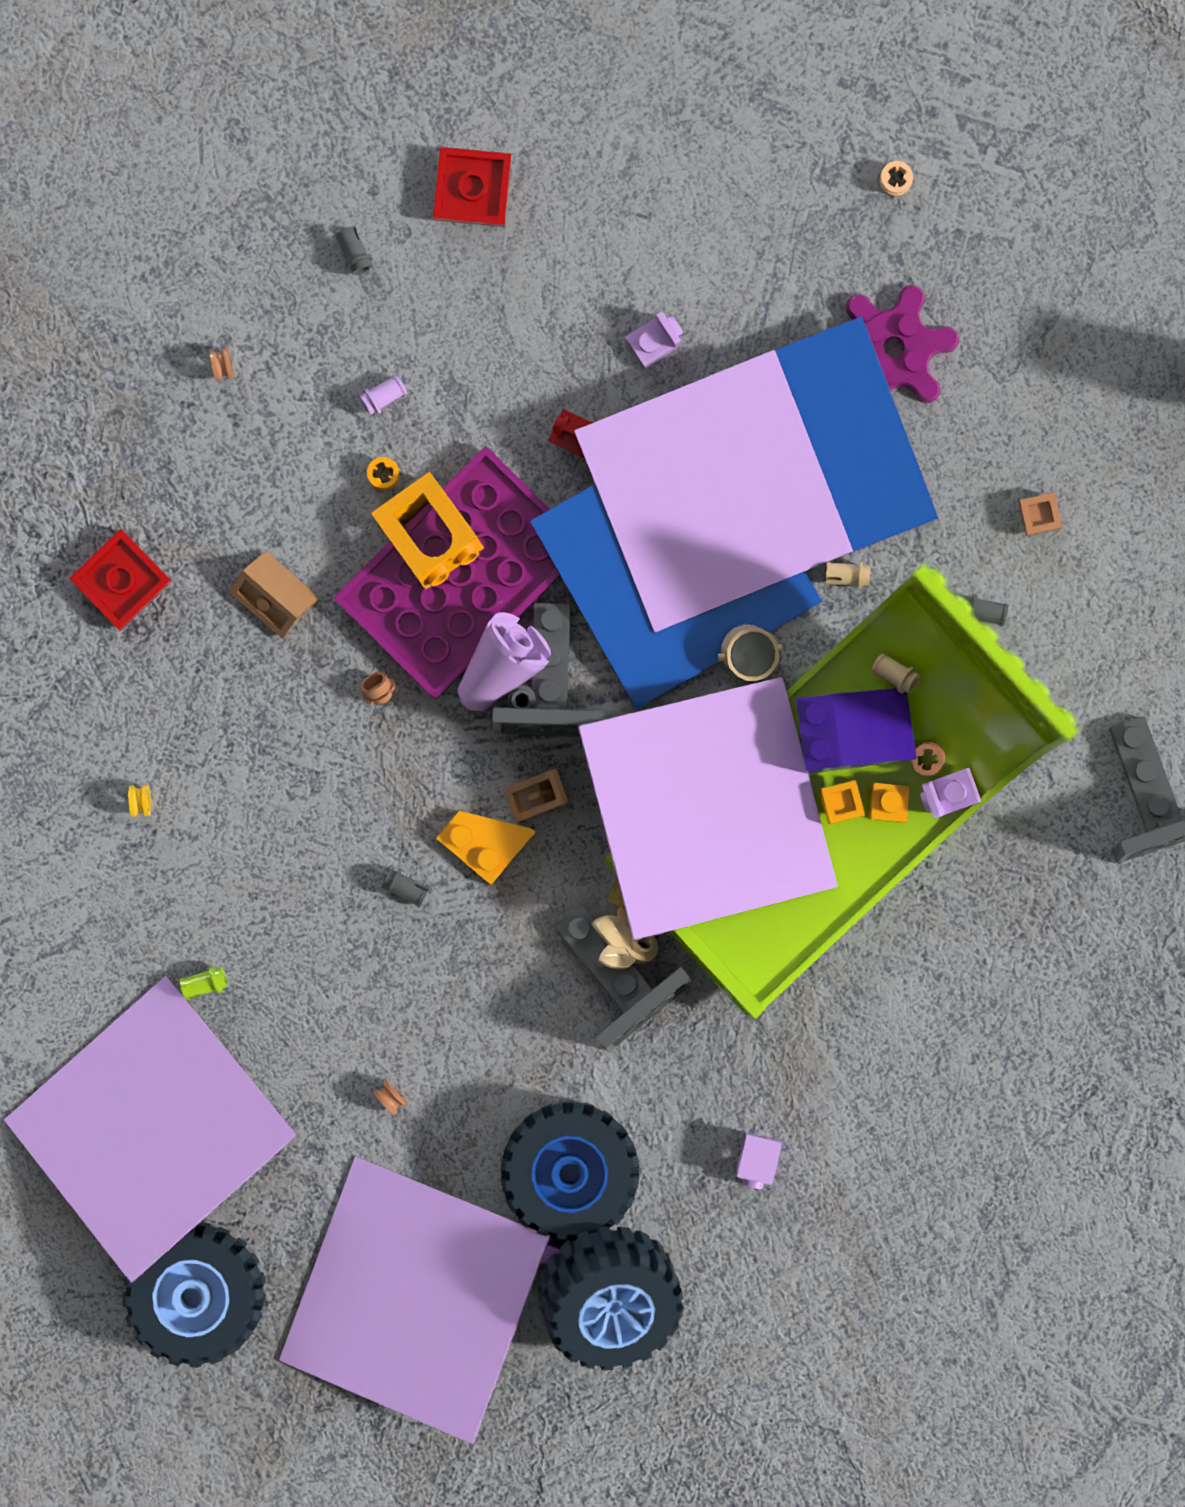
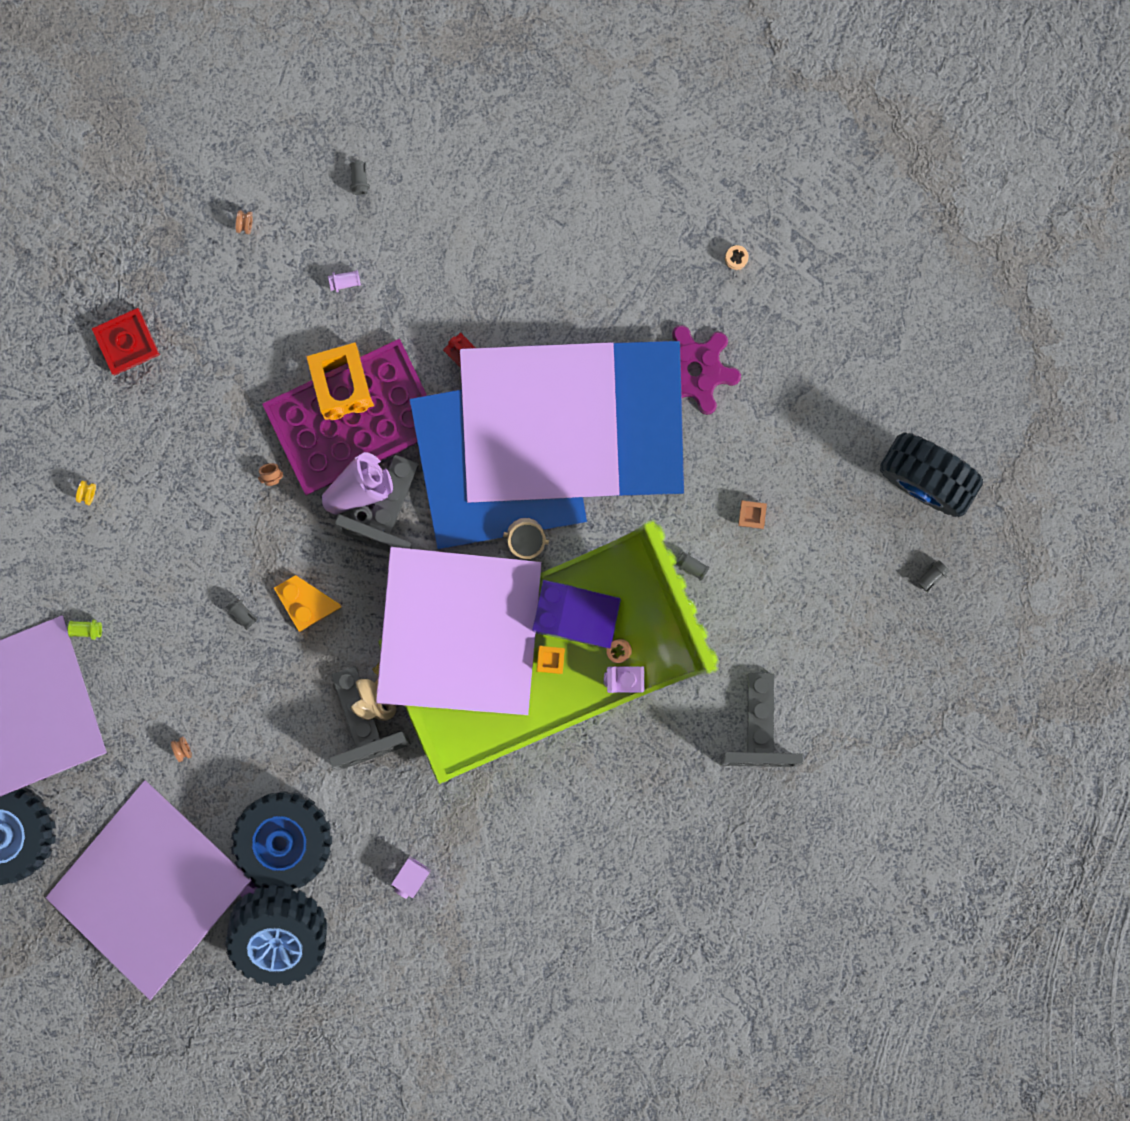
camera: 10 degrees right, 0 degrees up
(273, 594) = (224, 387): medium nougat panel -> none
(389, 464) = (331, 327): light orange bush -> none
(472, 187) = (452, 163): red plate -> none
(536, 795) = (351, 583): medium nougat slope -> none
(655, 339) = (538, 307): lavender bracket -> none
(848, 574) = (610, 509): tan pin -> none
(889, 803) = (582, 671): light orange plate -> none
(897, 674) = (616, 587): tan pin -> none

